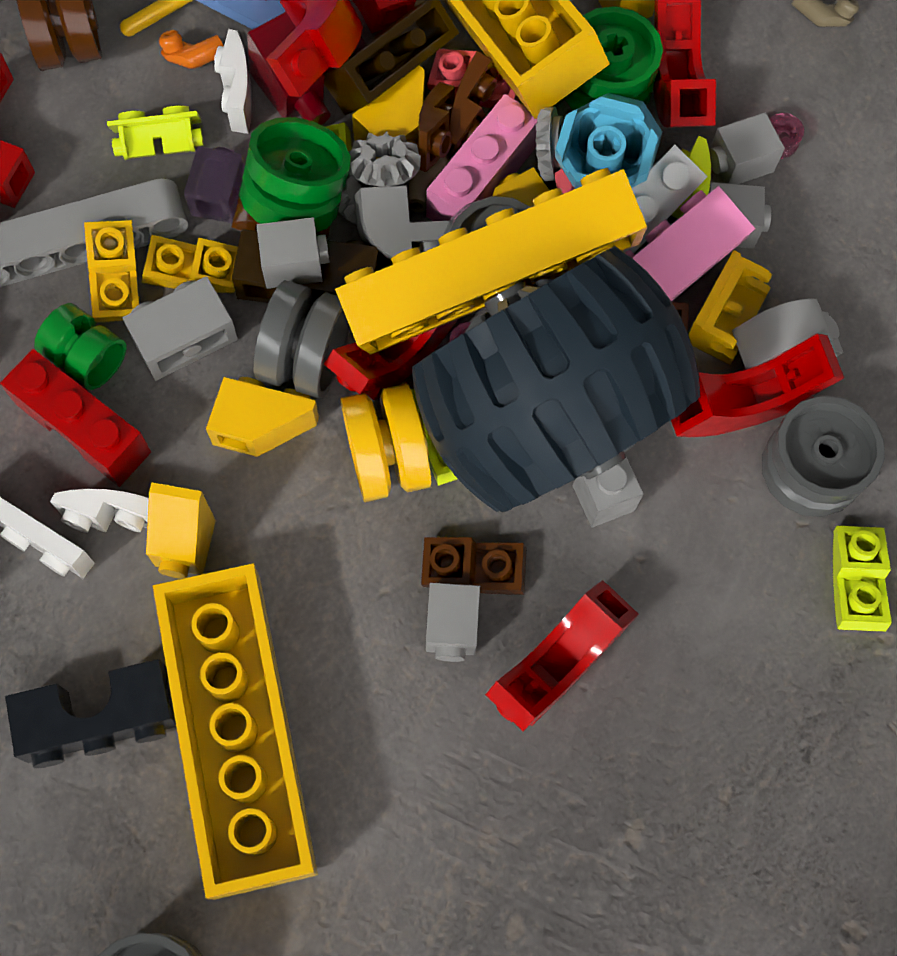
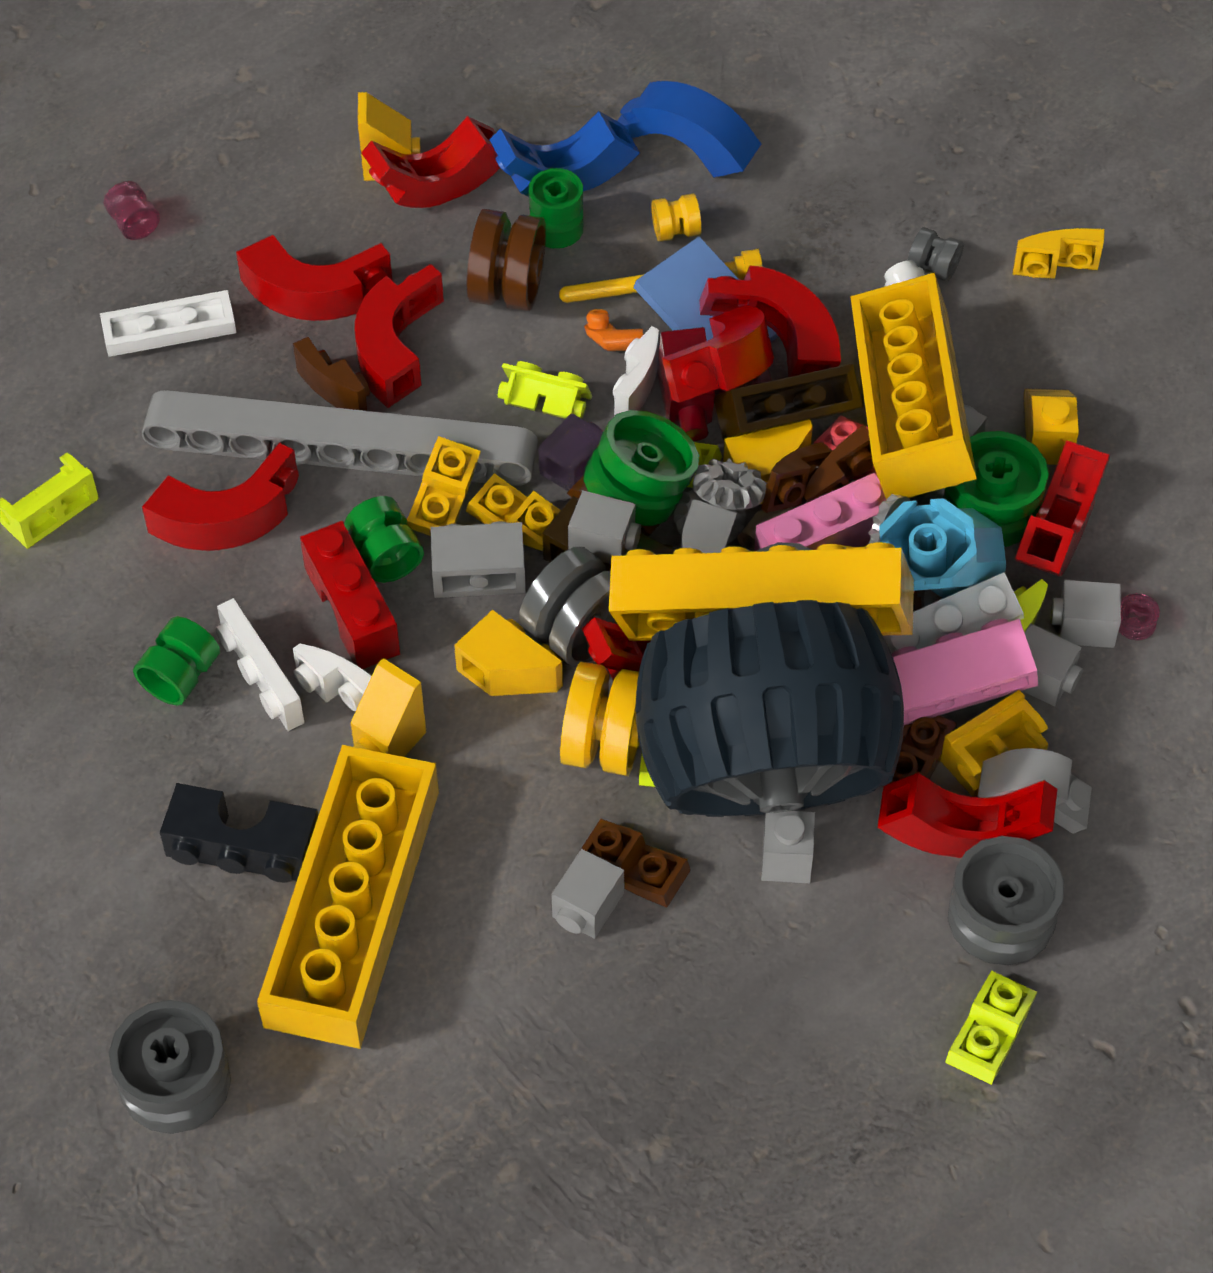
camera: 30 degrees right, 15 degrees down
(562, 656) = (671, 967): red arch -> none

